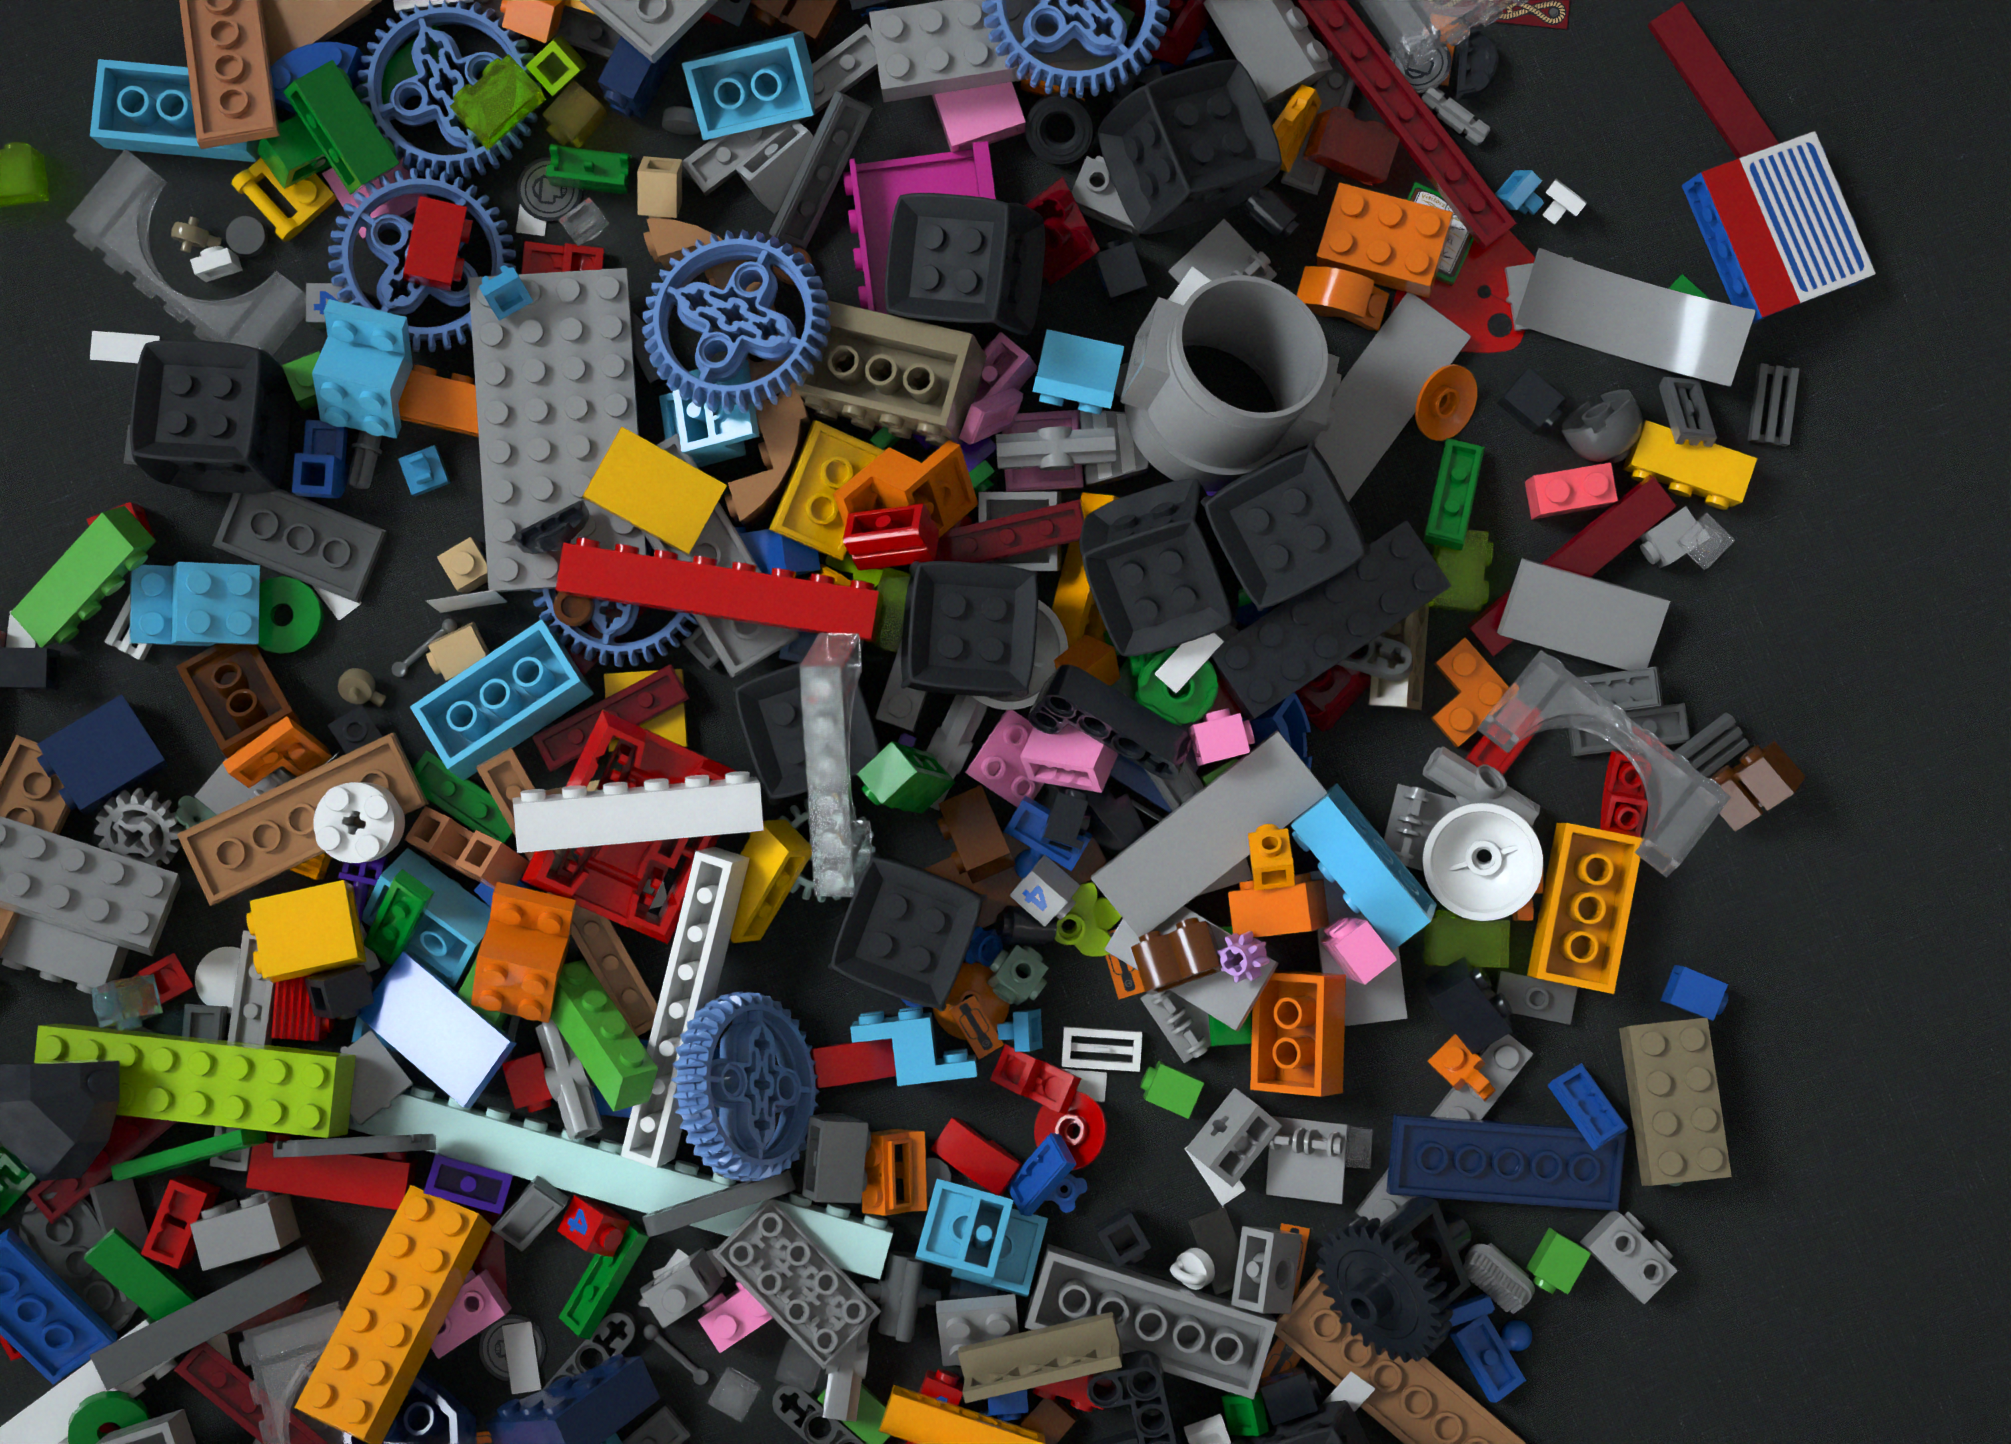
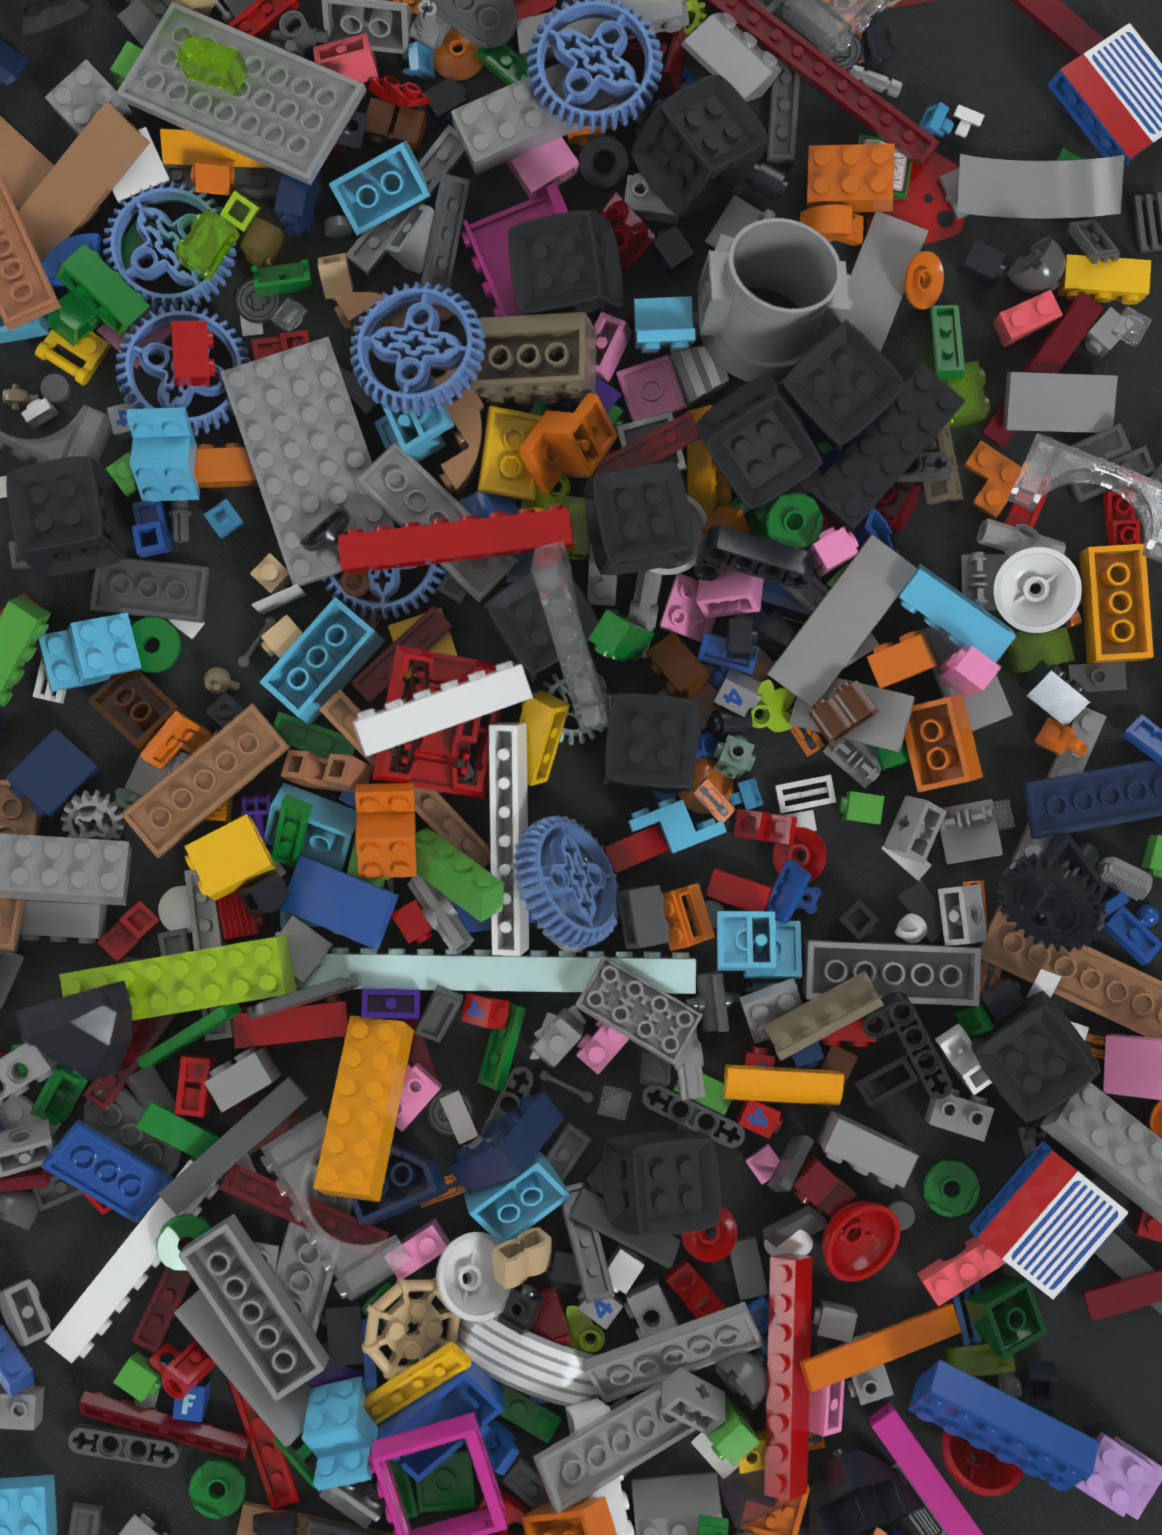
camera: 10 degrees left, 0 degrees up
(126, 1002) = (116, 941): clear light blue brick -> none
(342, 838) = (256, 783): white brick -> none
(505, 292) = (249, 373): dark azure tile -> none
(654, 491) = (391, 484): yellow tile -> none
(717, 1203) = (569, 969): dark grey beam -> none
(891, 536) = (565, 469): red brick -> none
(991, 415) = (611, 371): bright pink tile -> none
(1056, 448) = (662, 382): light grey piece -> none
(1187, 661) = (796, 500): white sticker -> none
(1243, 956) = (898, 697): lavender gear -> none
(1271, 857) = (888, 618): light orange brick -> none
(1295, 123) = (767, 110): light orange wing -> none
(1351, 146) = (810, 119): clear red brick -> none

